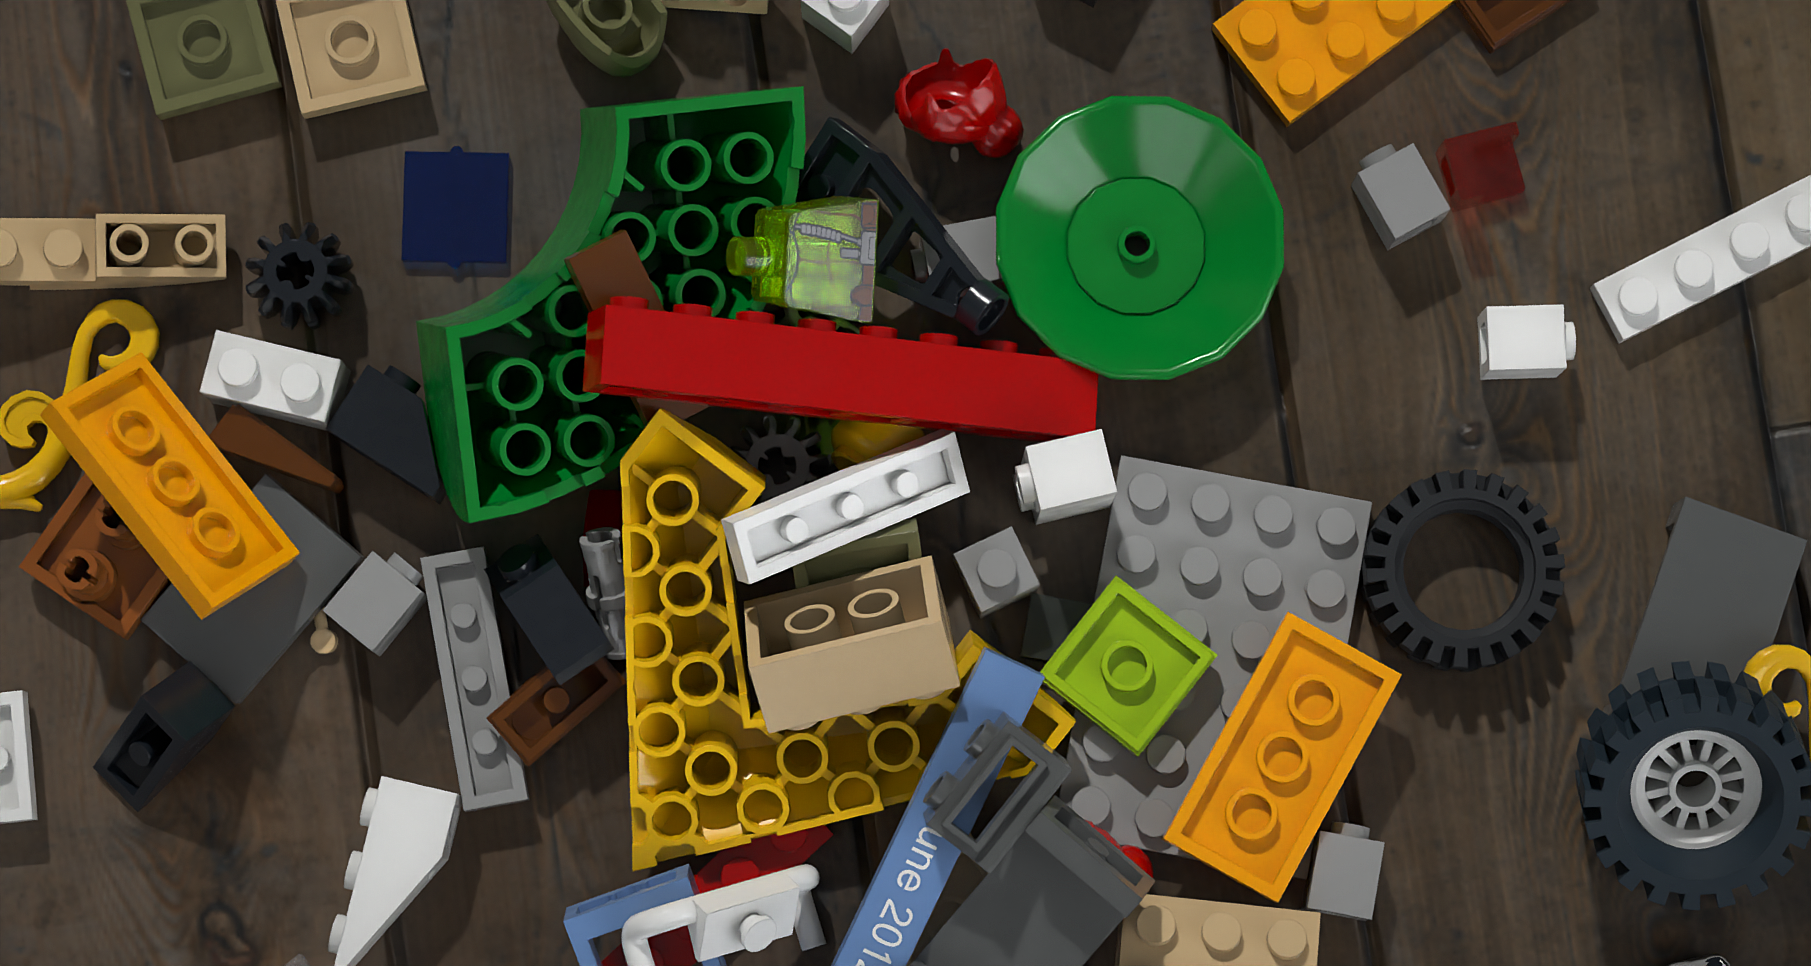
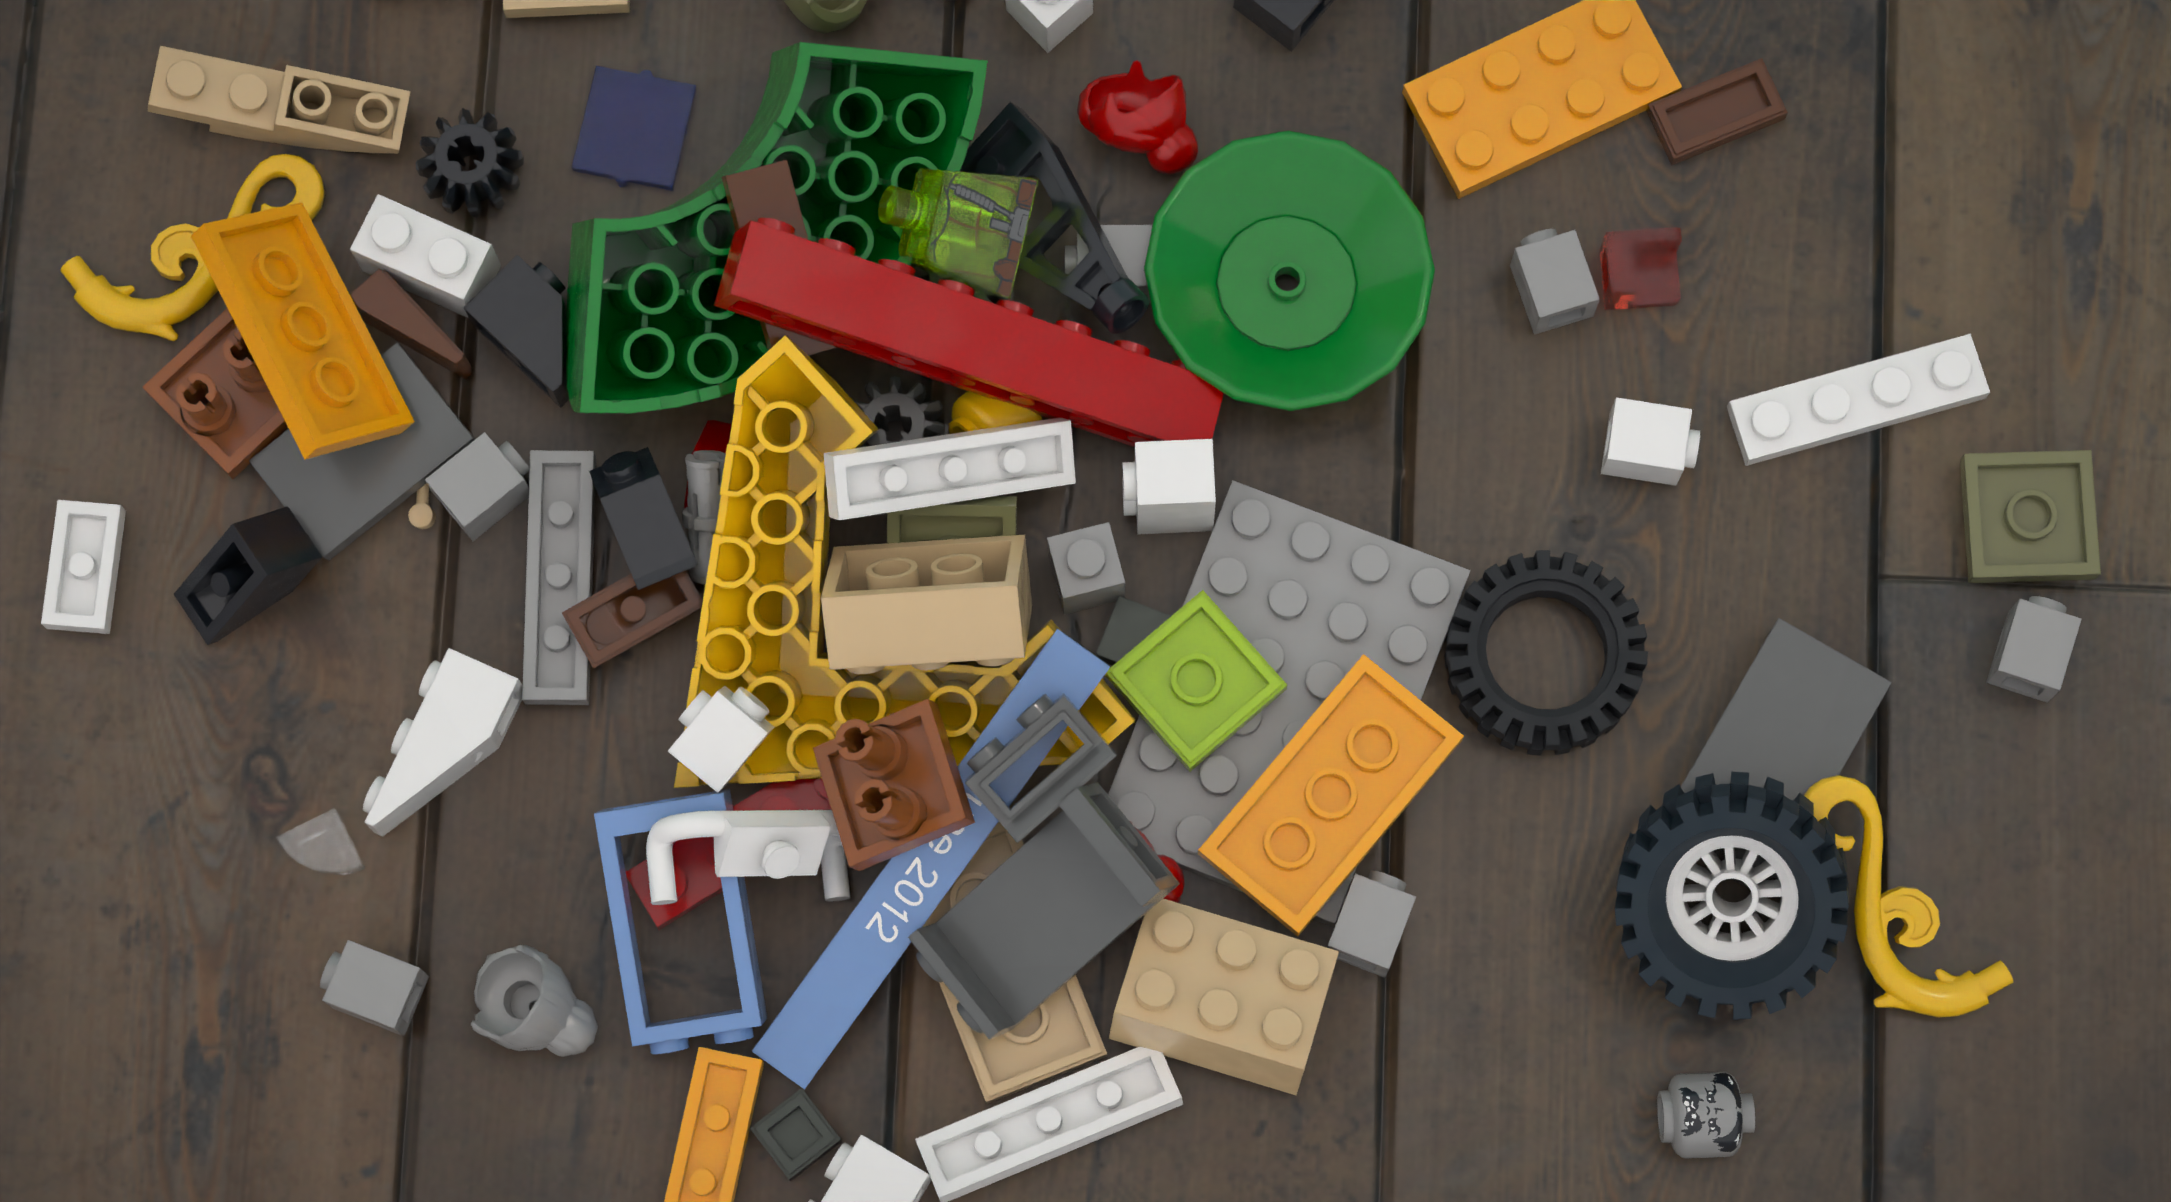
camera: 15 degrees right, 5 degrees down
(672, 816) = (721, 734): none -> white brick
(853, 834) = (893, 784): none -> dark orange plate

